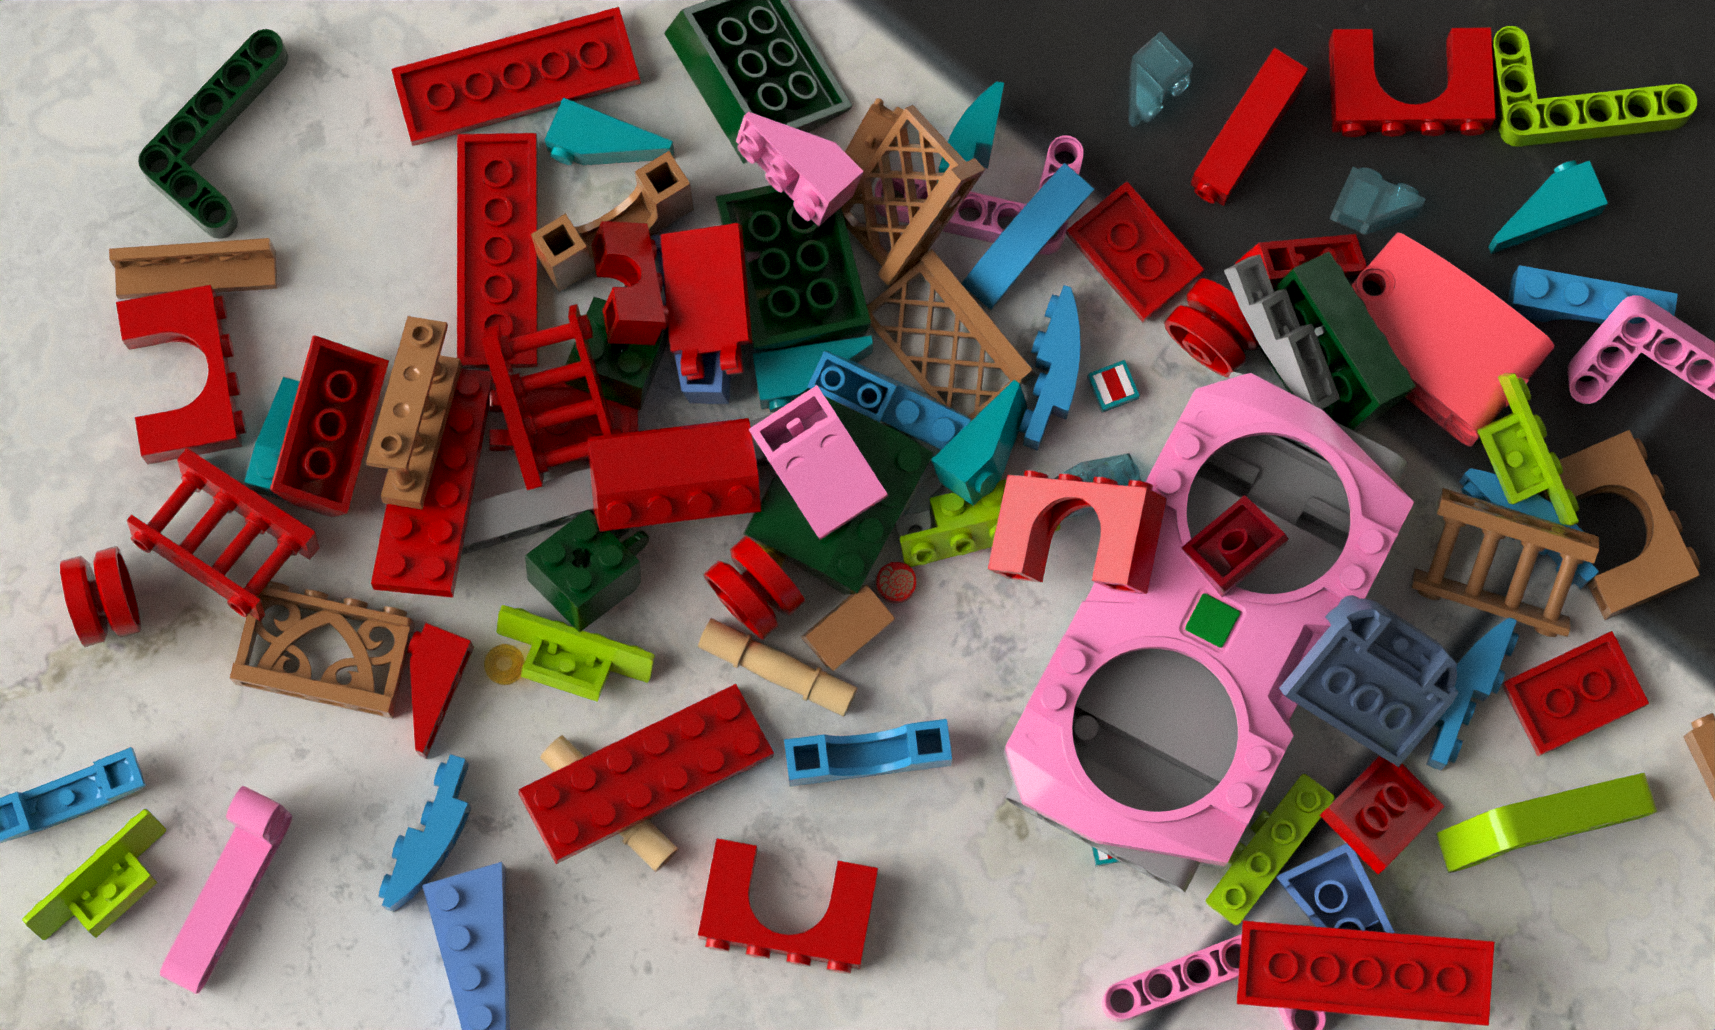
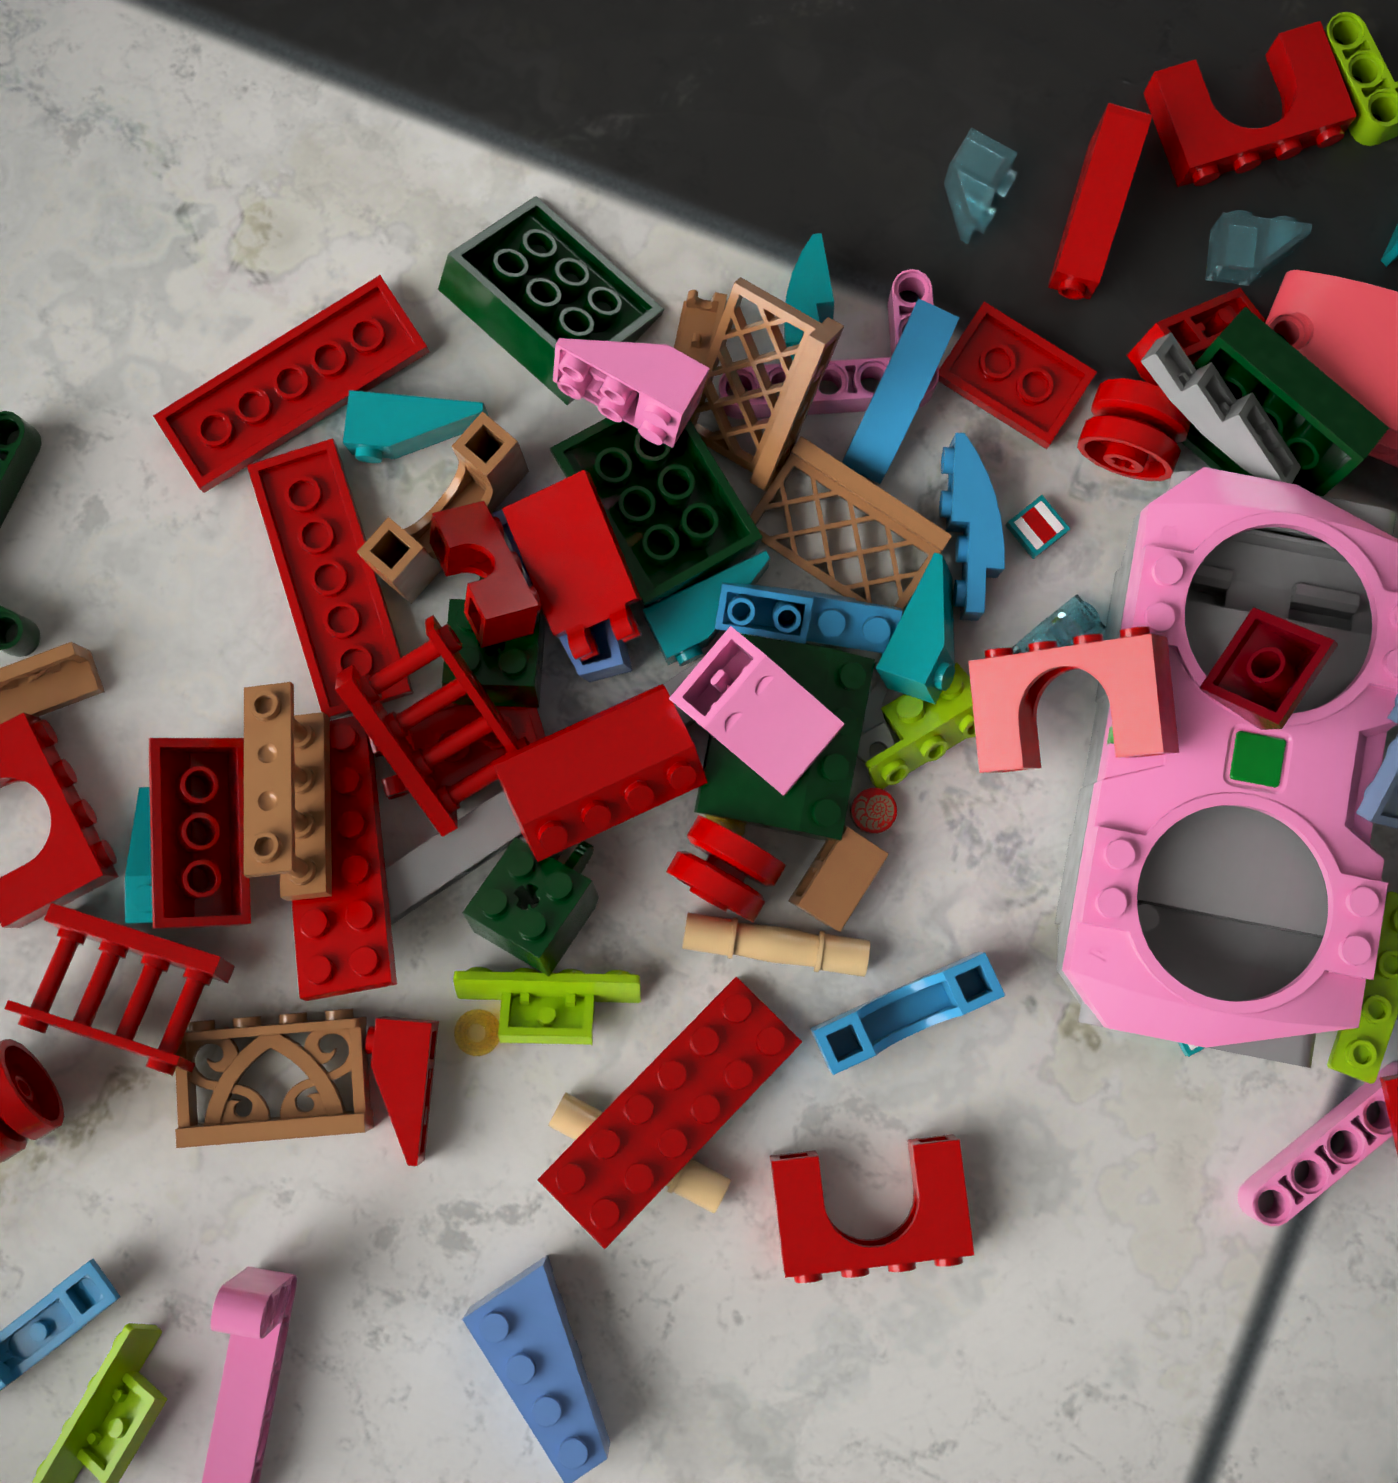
camera: 15 degrees left, 5 degrees up
(423, 853) = (452, 1269): dark azure slope -> none

